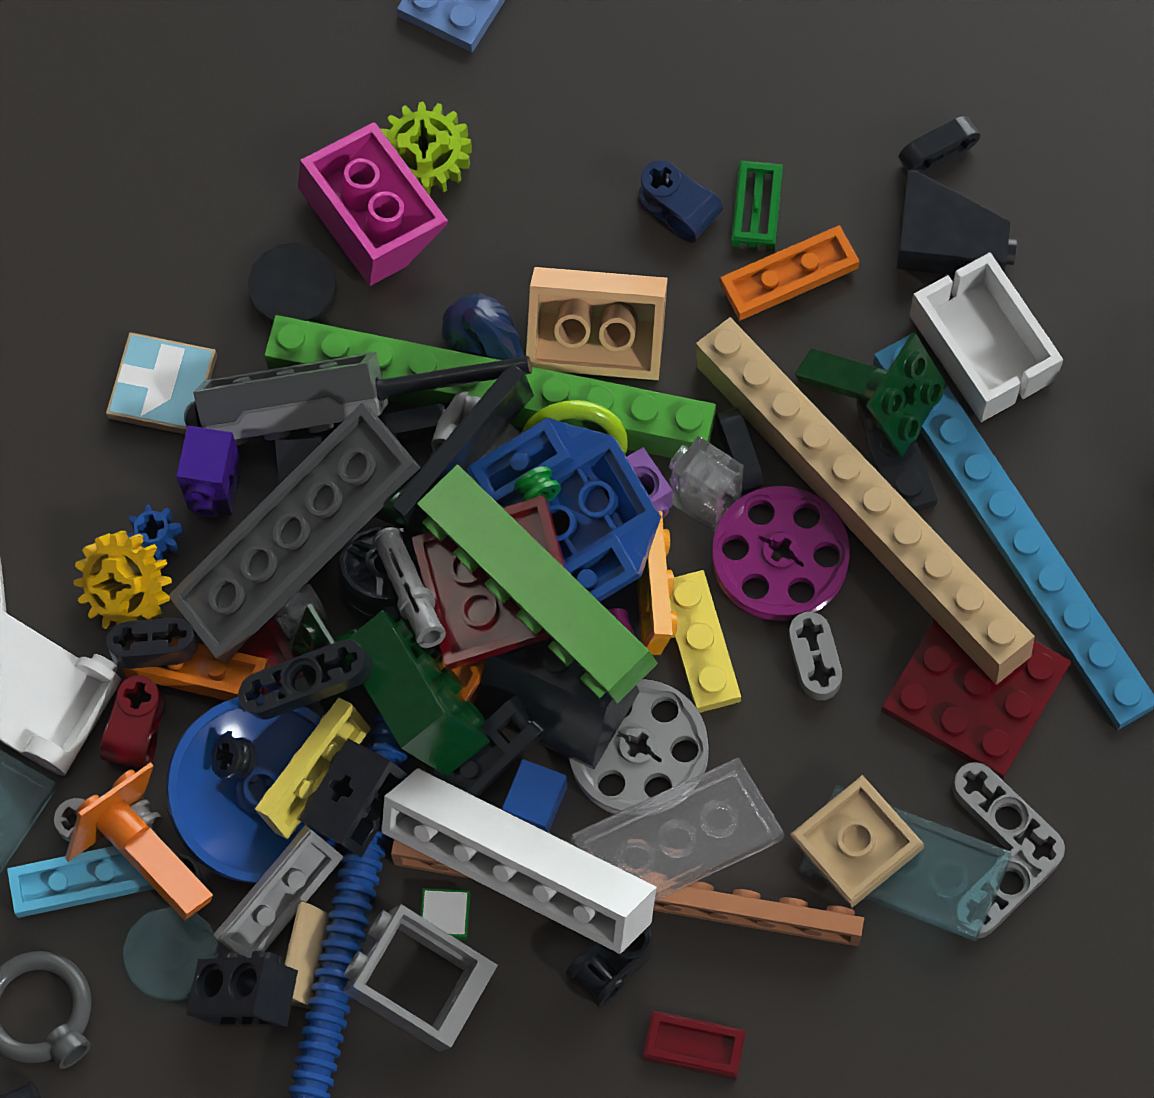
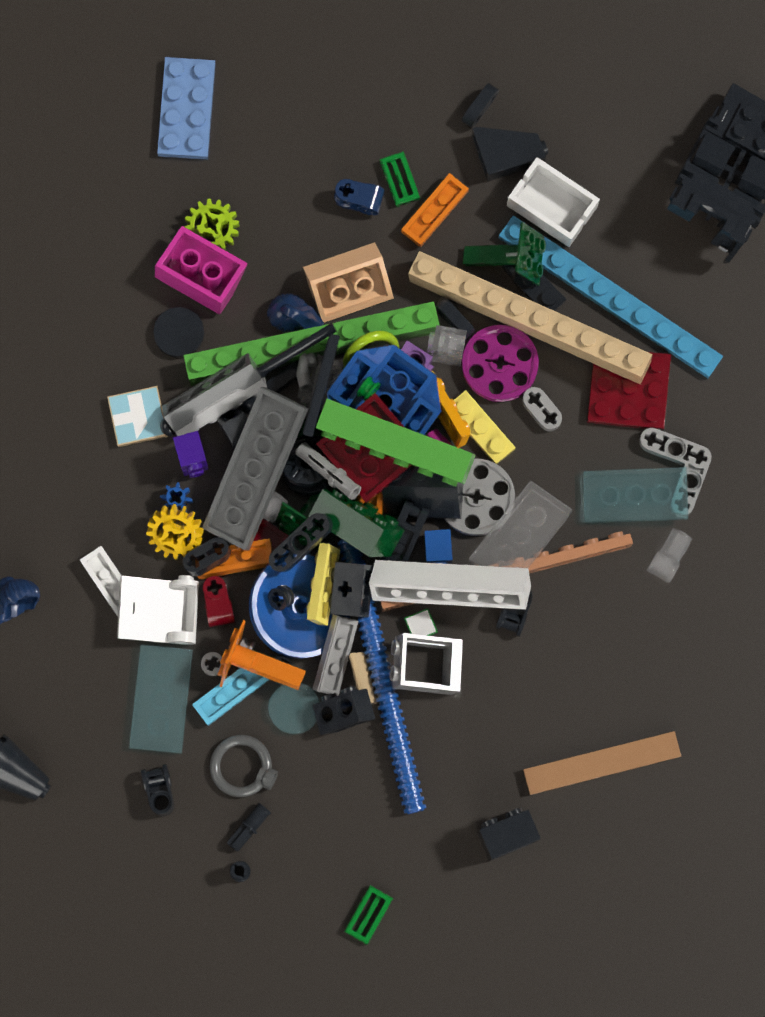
camera: 30 degrees left, 10 degrees up
(694, 1045) = (574, 633): dark red tile -> none
(857, 841) = (608, 495): tan tile -> none
(907, 995) = (667, 560): none -> clear piece

